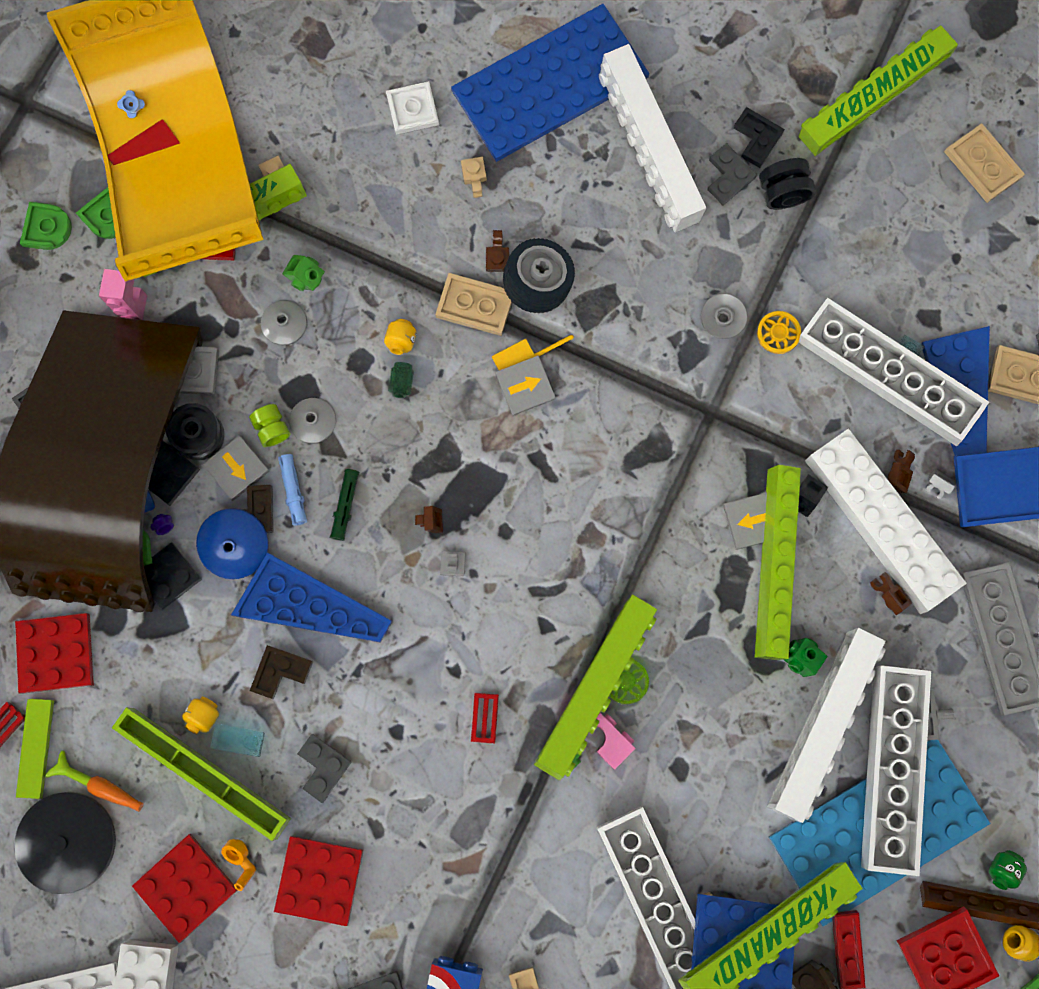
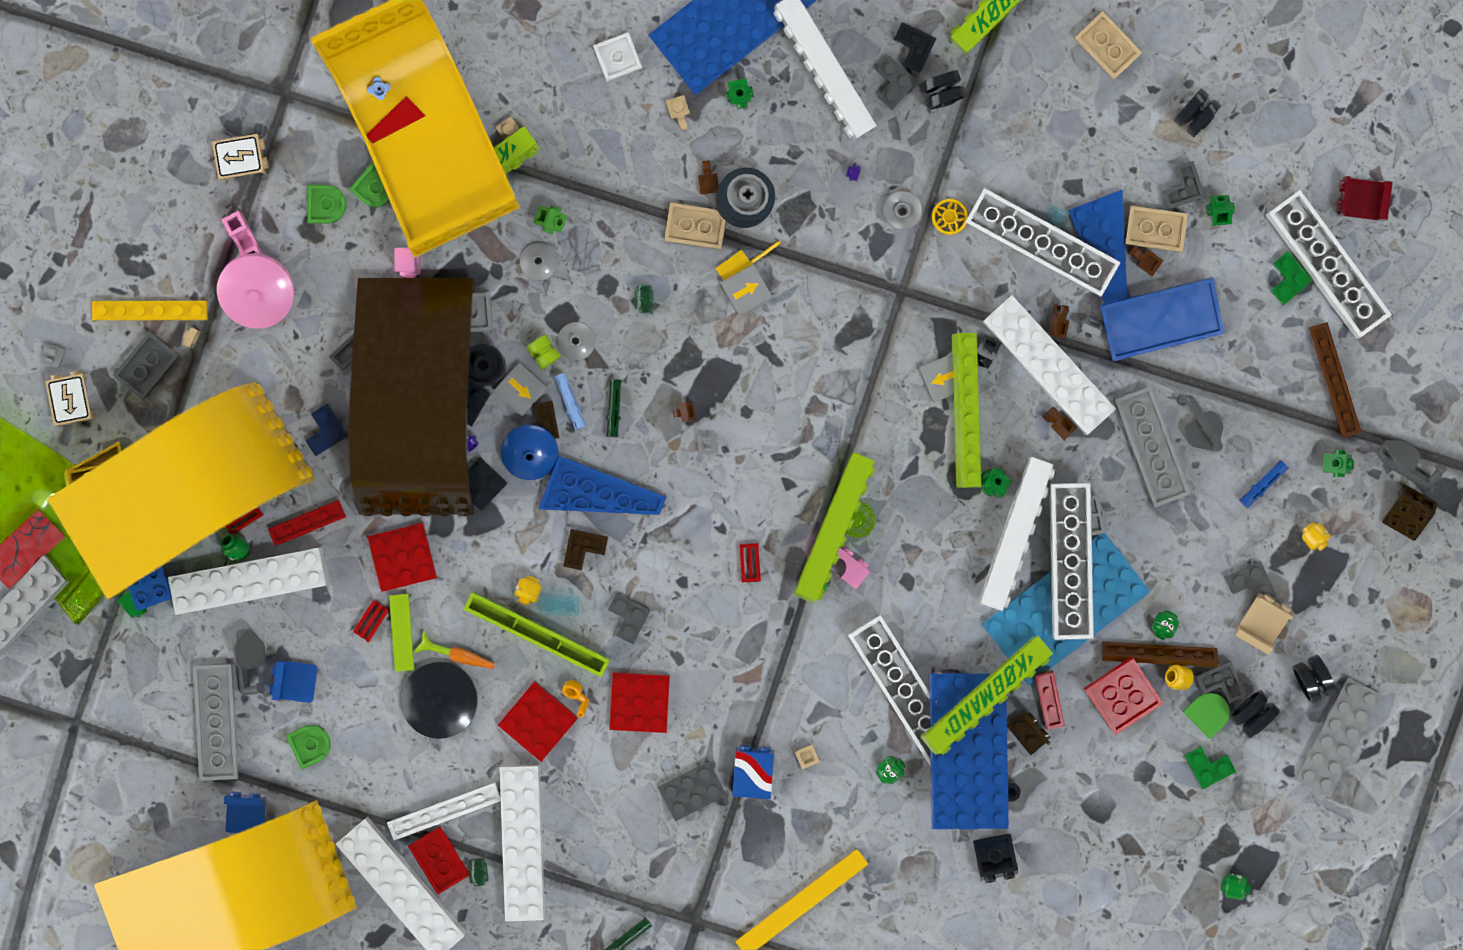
camera: 10 degrees left, 10 degrees up
(400, 336) = (638, 262): yellow head -> none
(547, 160) = (736, 87): none -> green brick
(670, 267) = (853, 172): none -> dark purple plate
(1014, 413) = (1147, 261): none -> reddish brown plate

